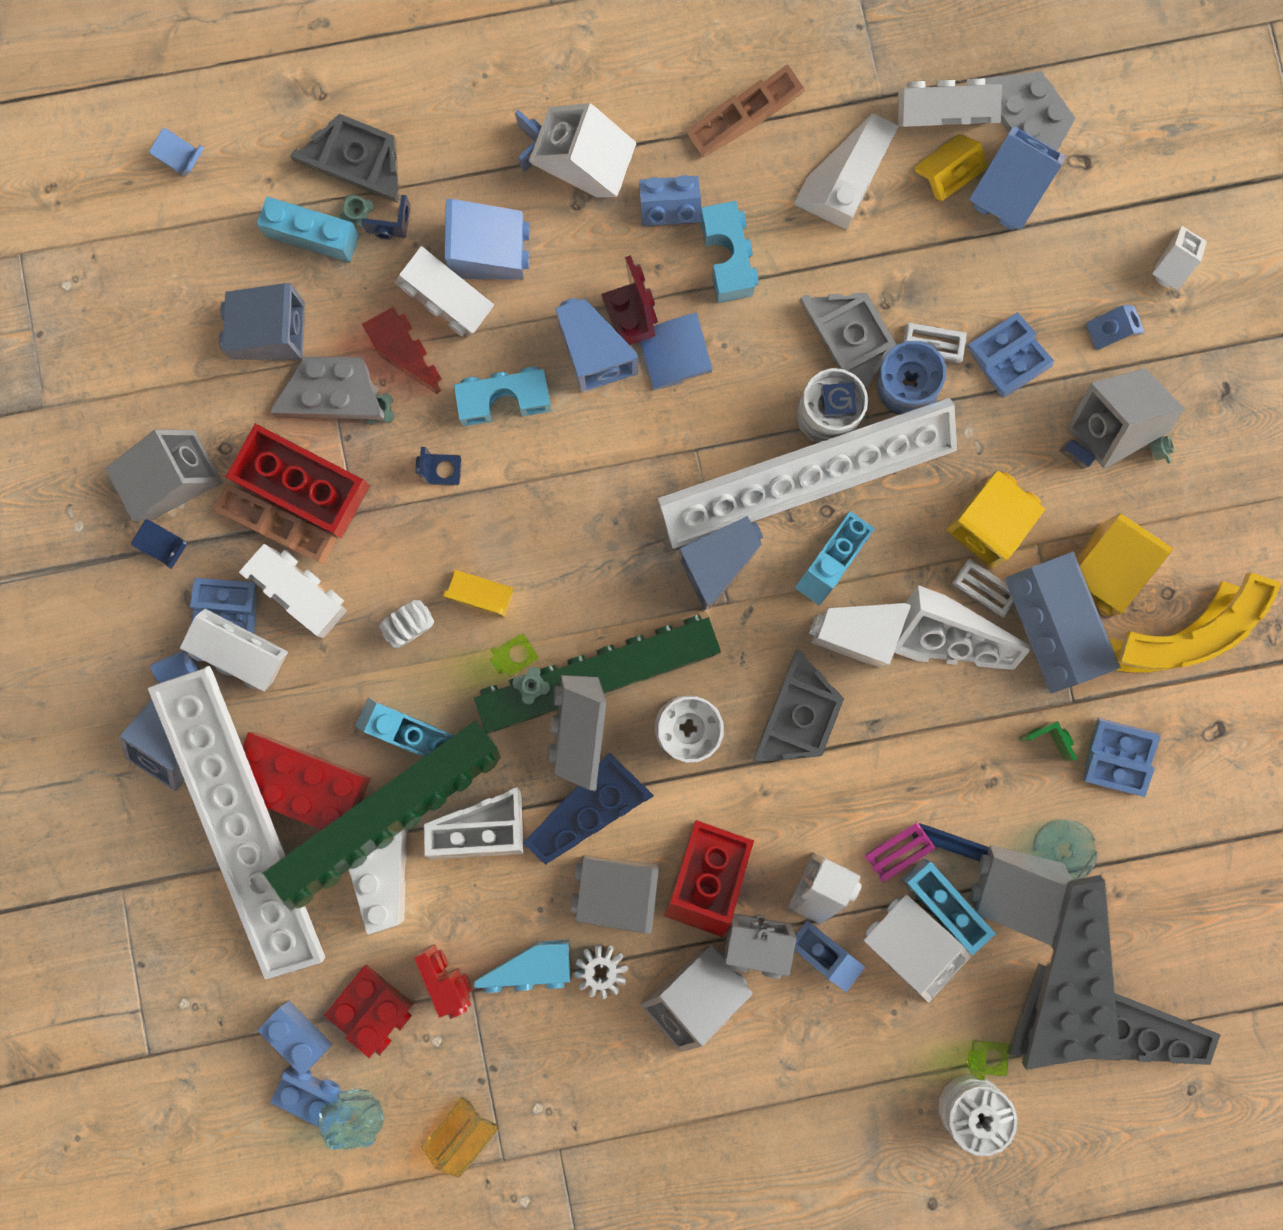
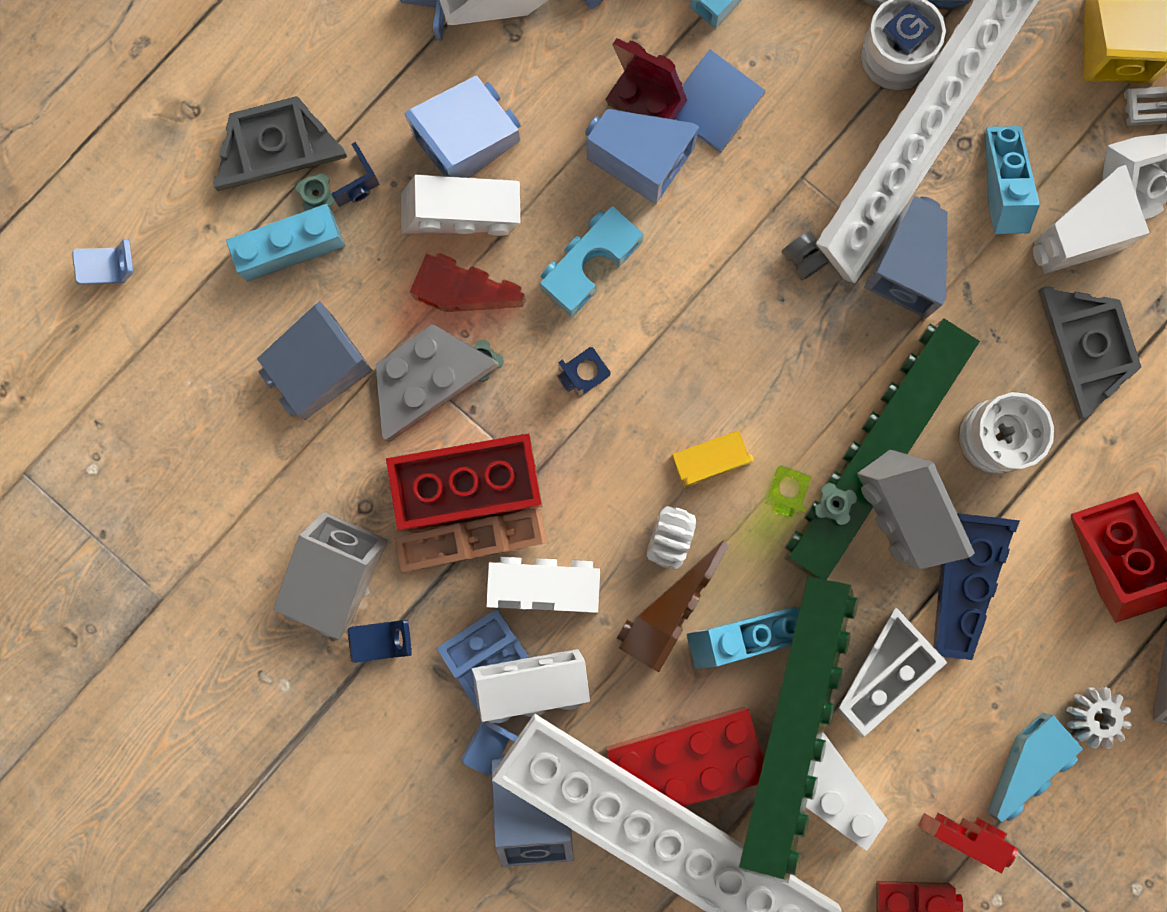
camera: 35 degrees left, 0 degrees up
(352, 677) = (659, 625): none -> reddish brown wedge
(616, 893) = (1062, 634): light grey slope -> none
(649, 506) = (801, 249): none -> dark grey wheel

